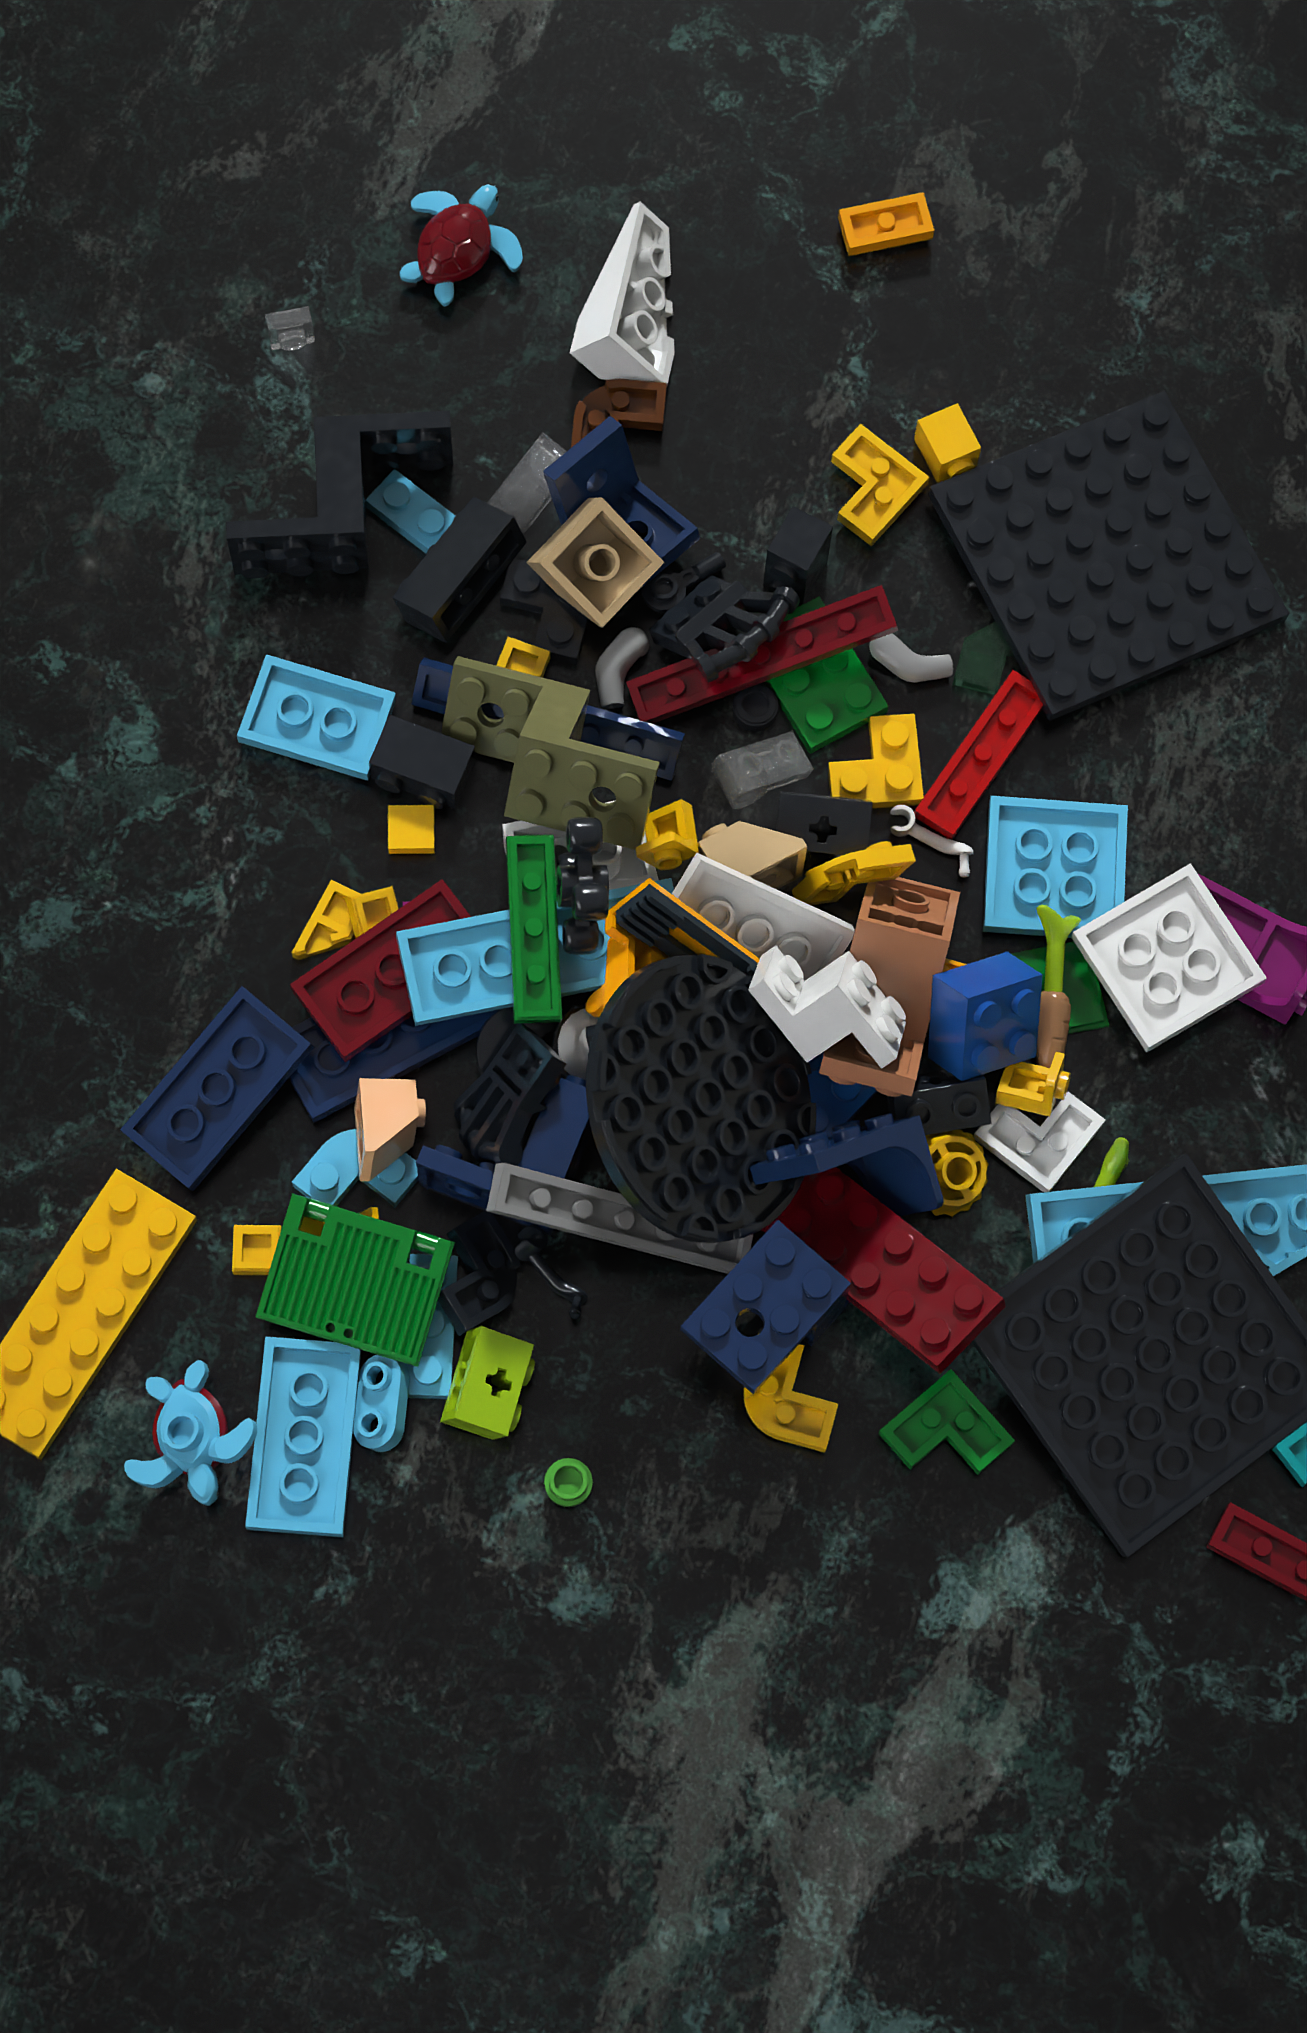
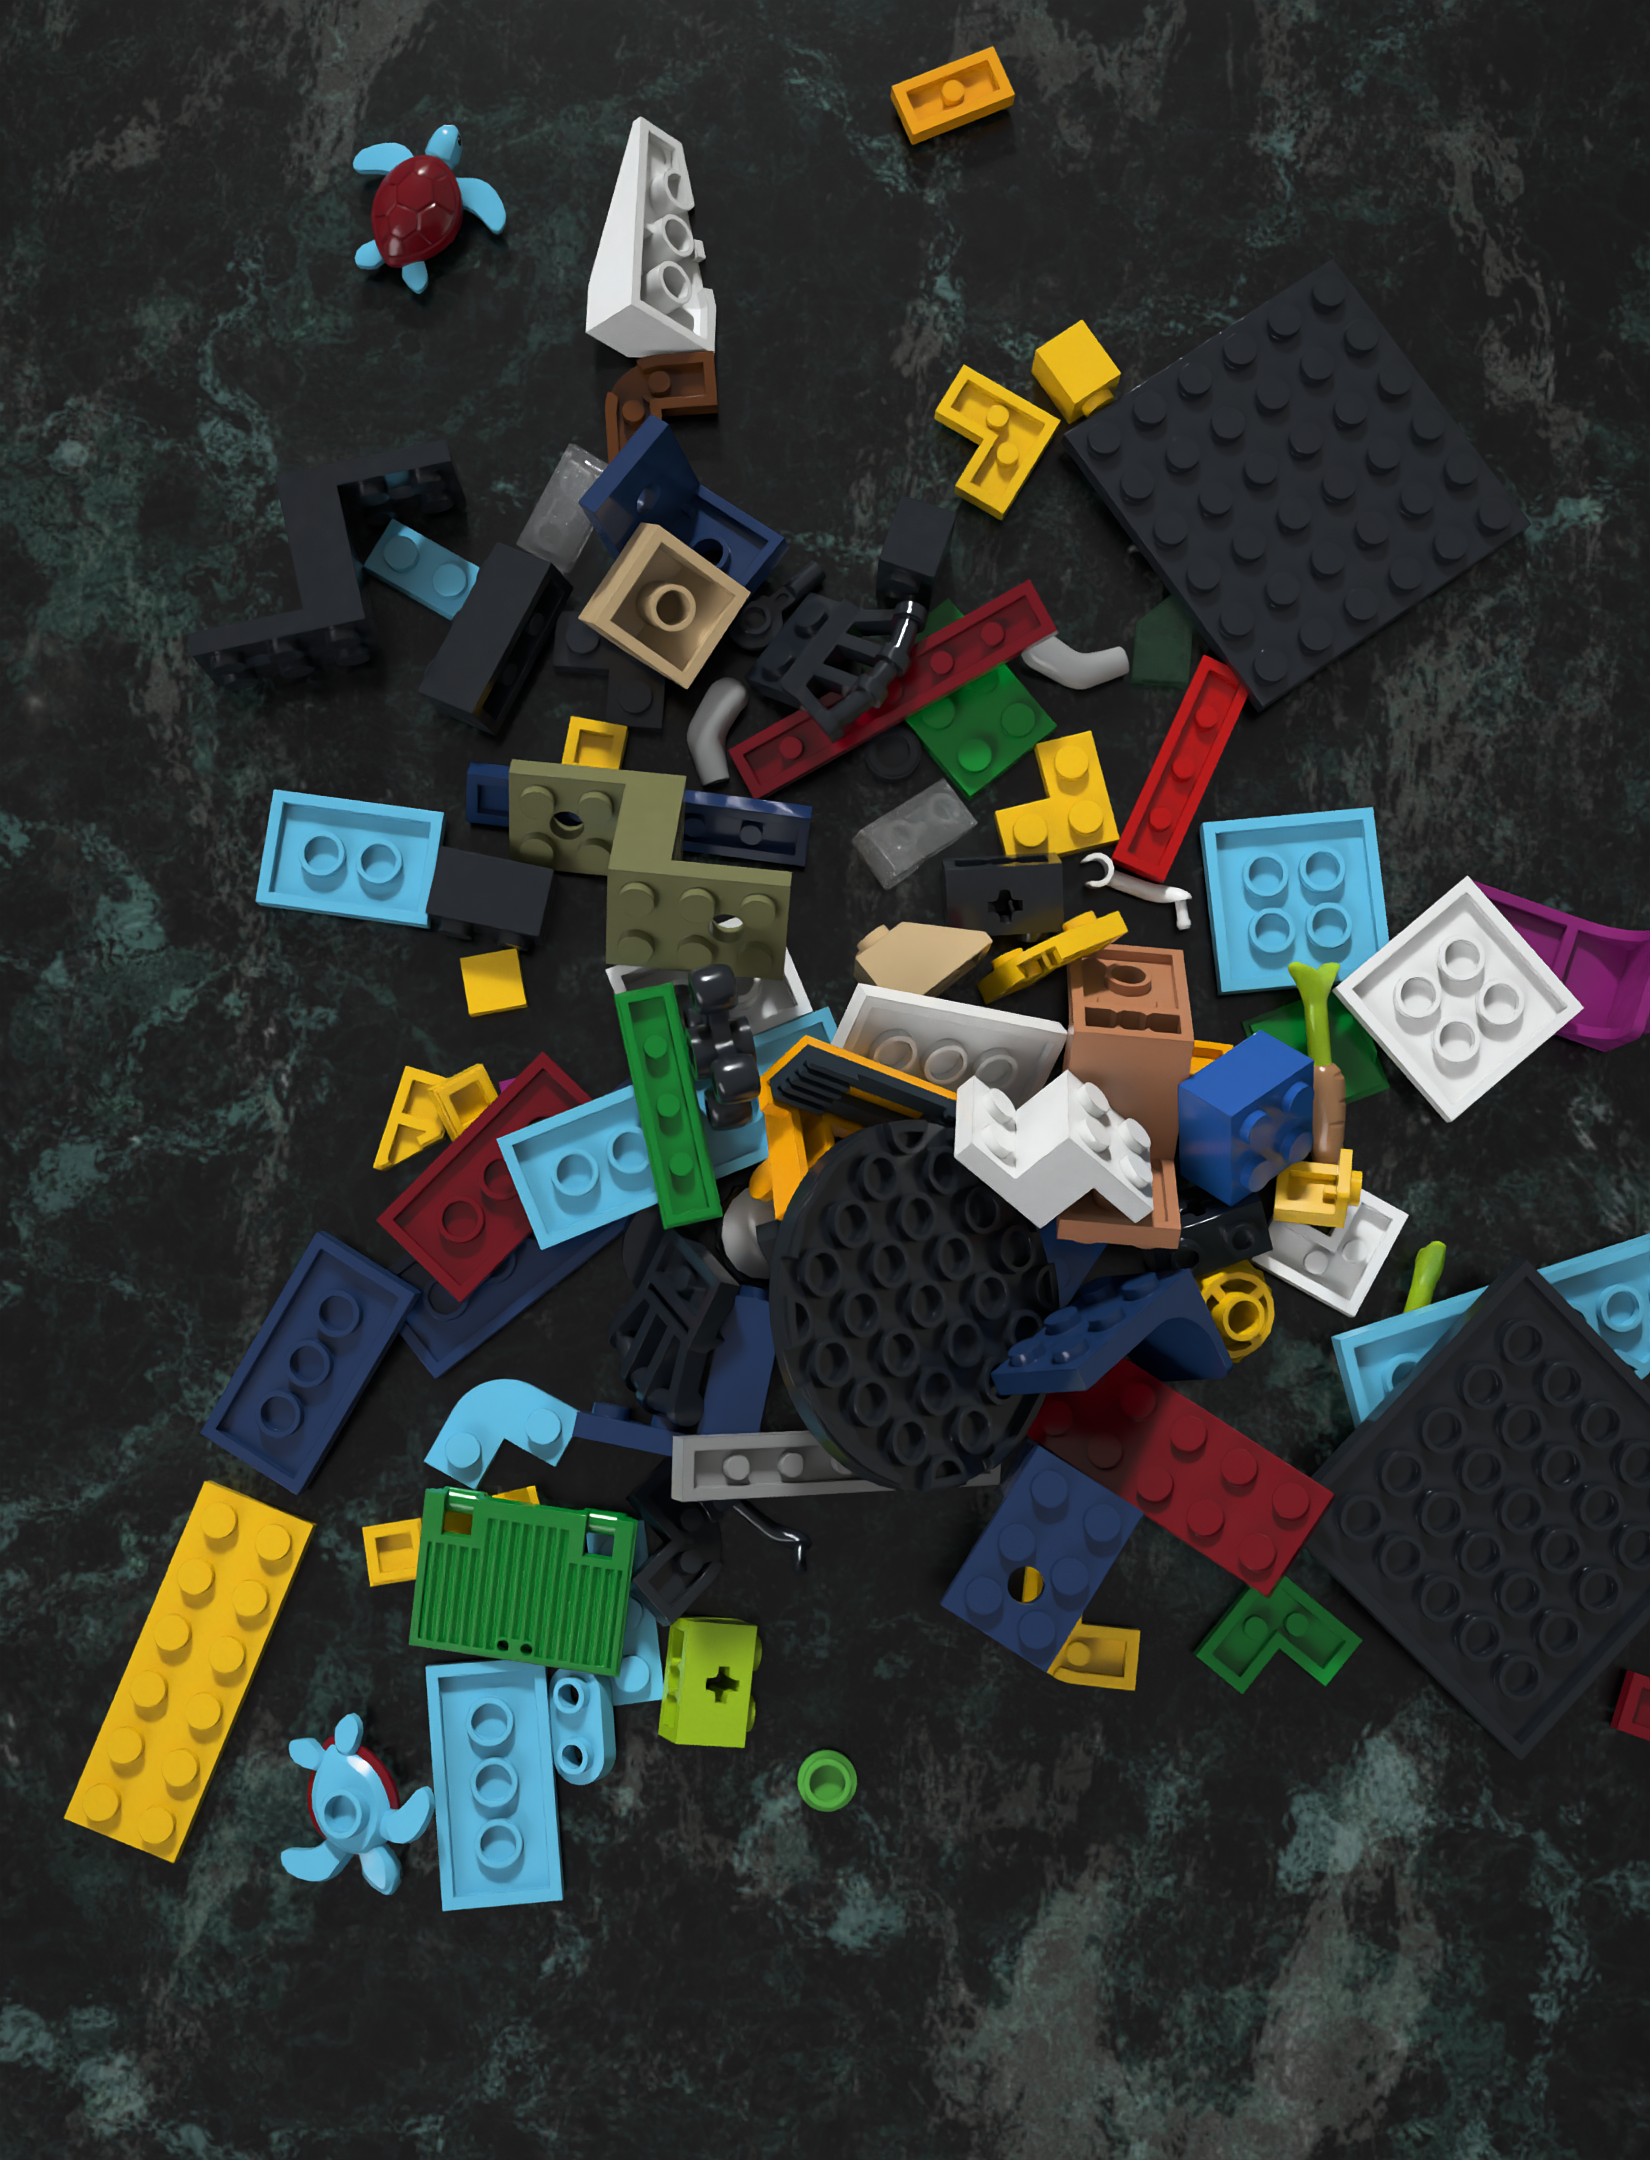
camera: 10 degrees left, 10 degrees up
(290, 328) = (229, 356): clear plate -> none
(385, 1122) = (526, 1373): light nougat slope -> none
(669, 836) = (818, 954): yellow bracket -> none

